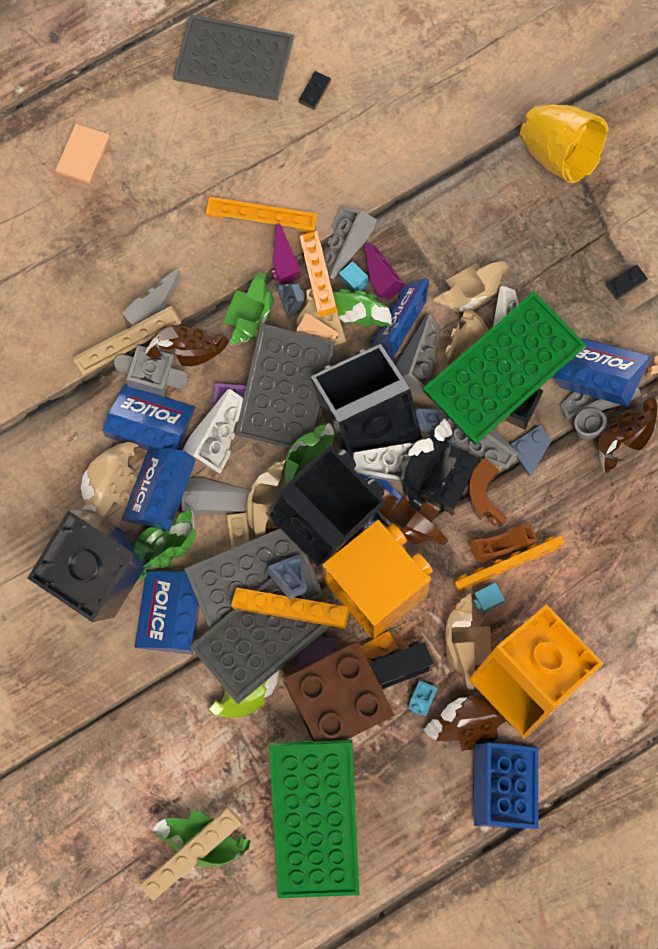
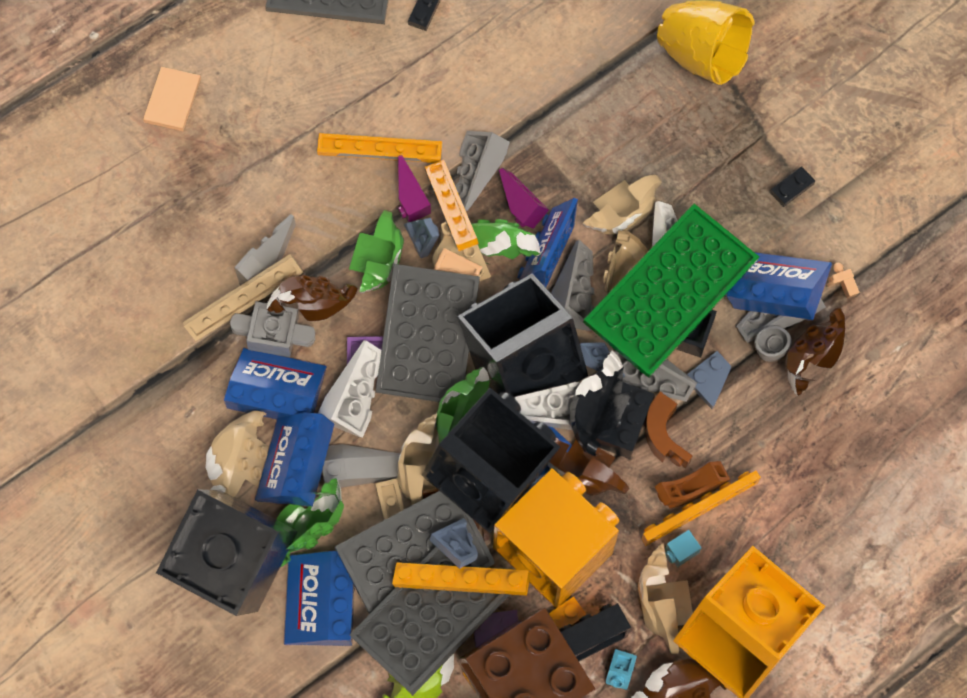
camera: 10 degrees left, 5 degrees down
(353, 278) = (490, 207): medium azure brick -> none

